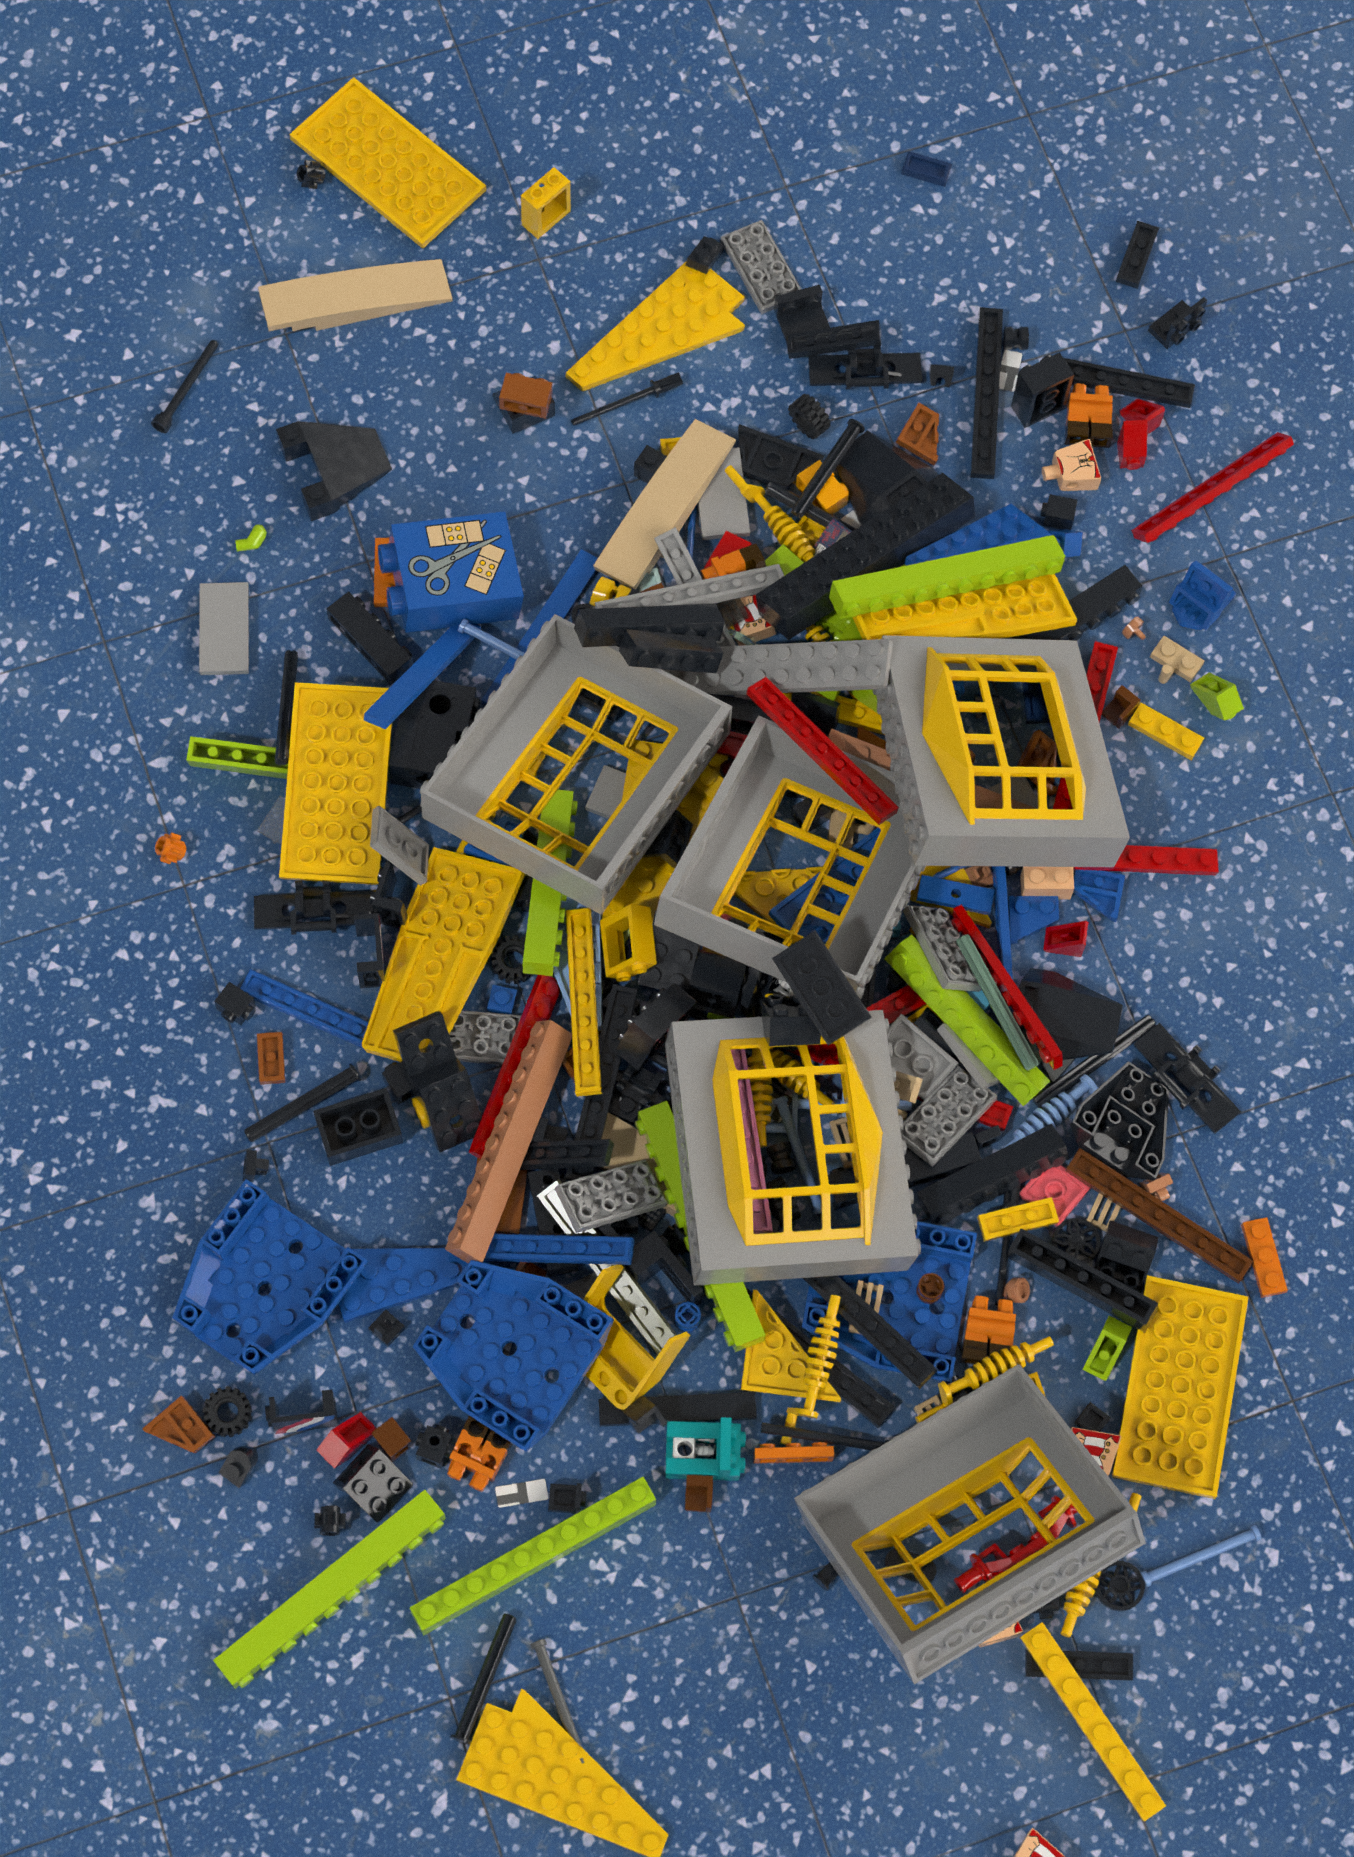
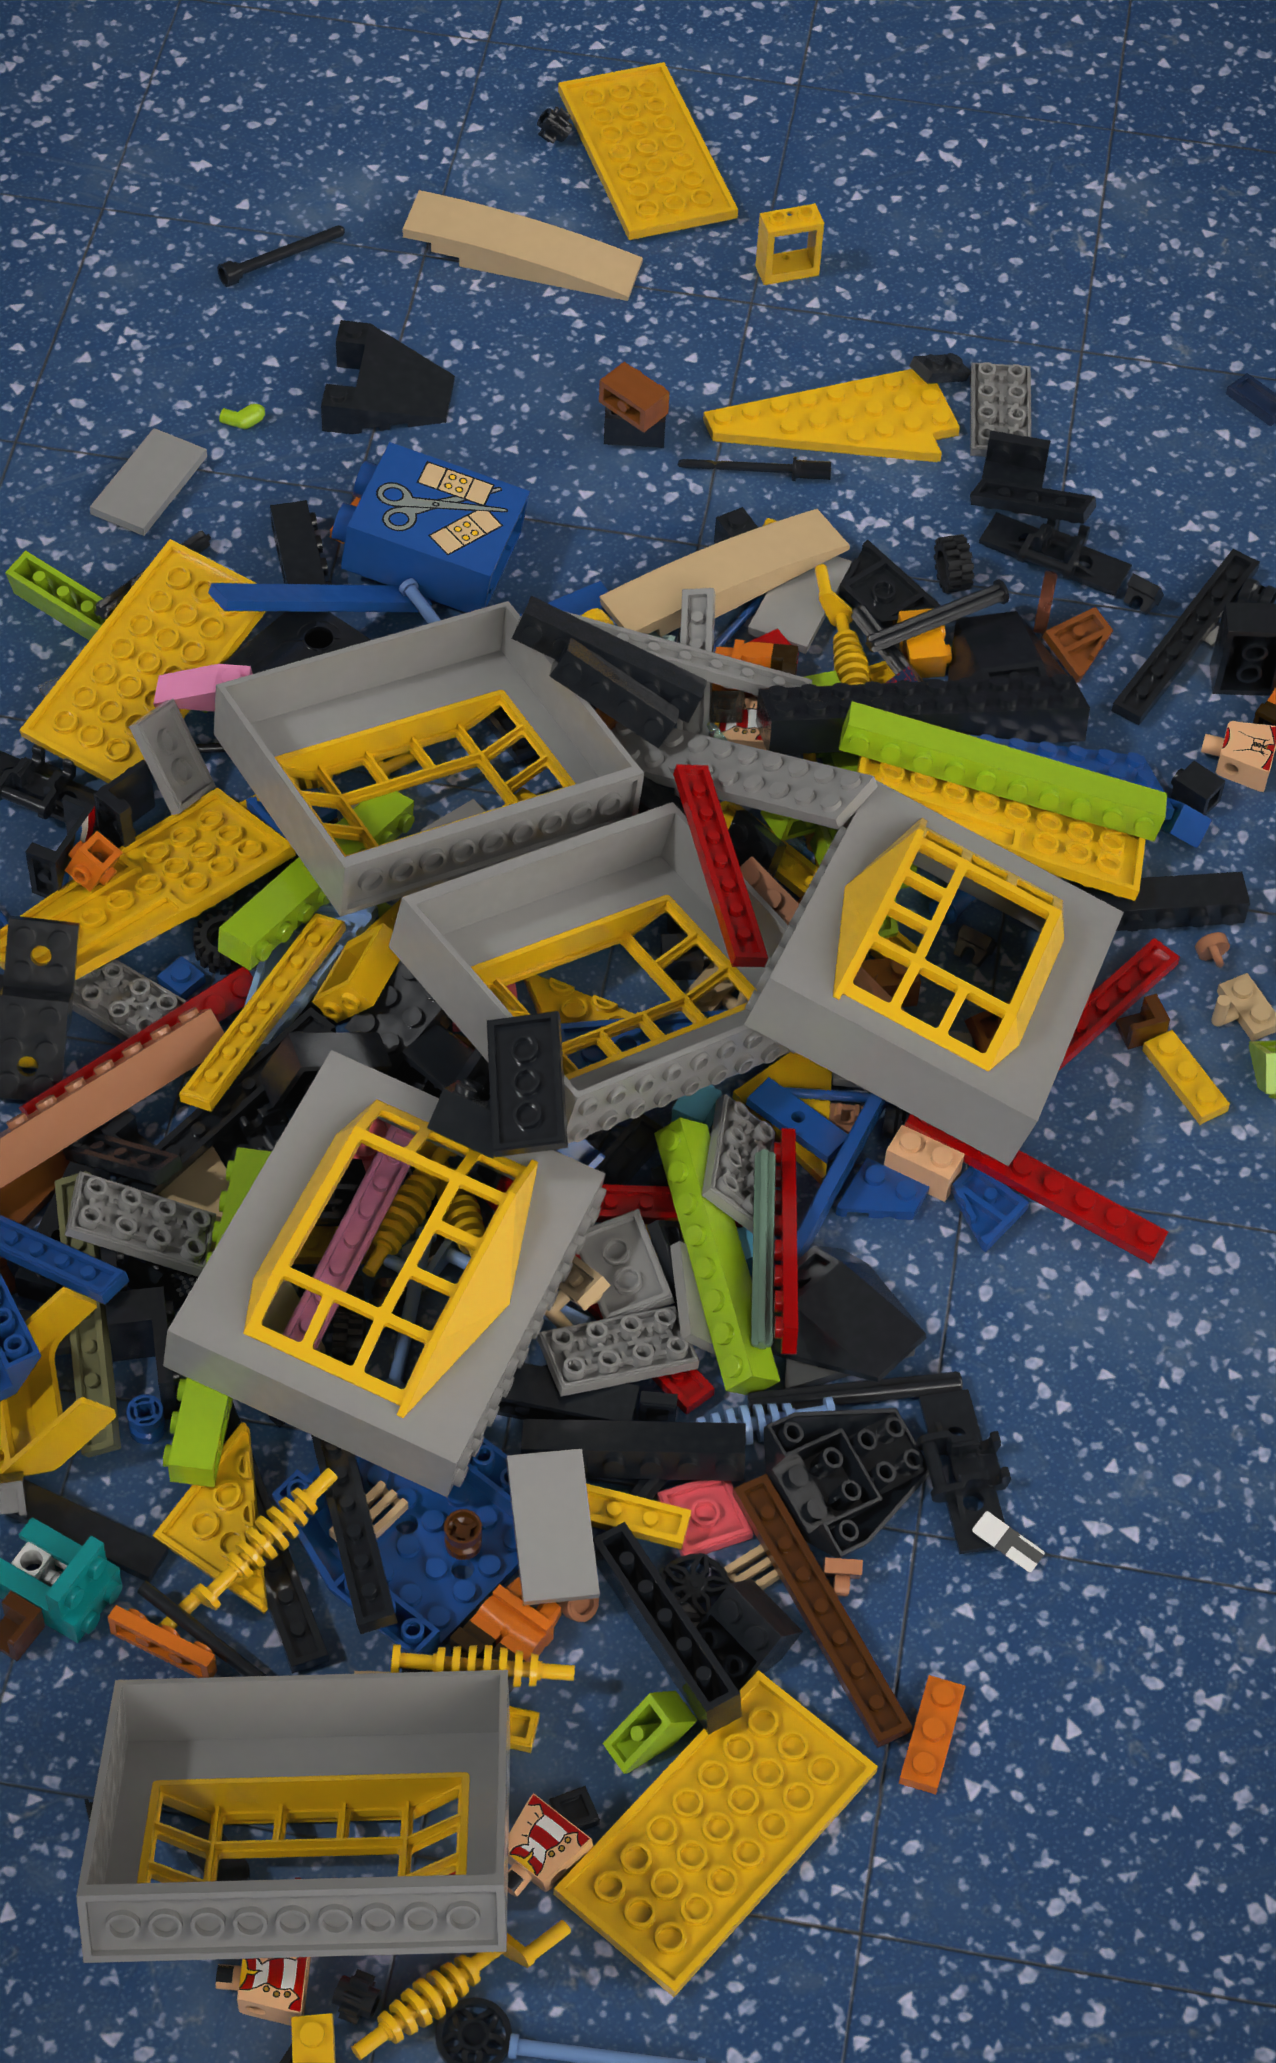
camera: 30 degrees right, 15 degrees down
(393, 786) = (196, 687): none -> bright pink slope
(401, 952) = (93, 861): none -> orange brick
(886, 417) = (1045, 602): none -> copper tile
(984, 1256) = (552, 1527): none -> light grey tile
(1066, 939) = (910, 1238): red slope -> none
(1239, 1111) = (1008, 1541): none -> white sticker

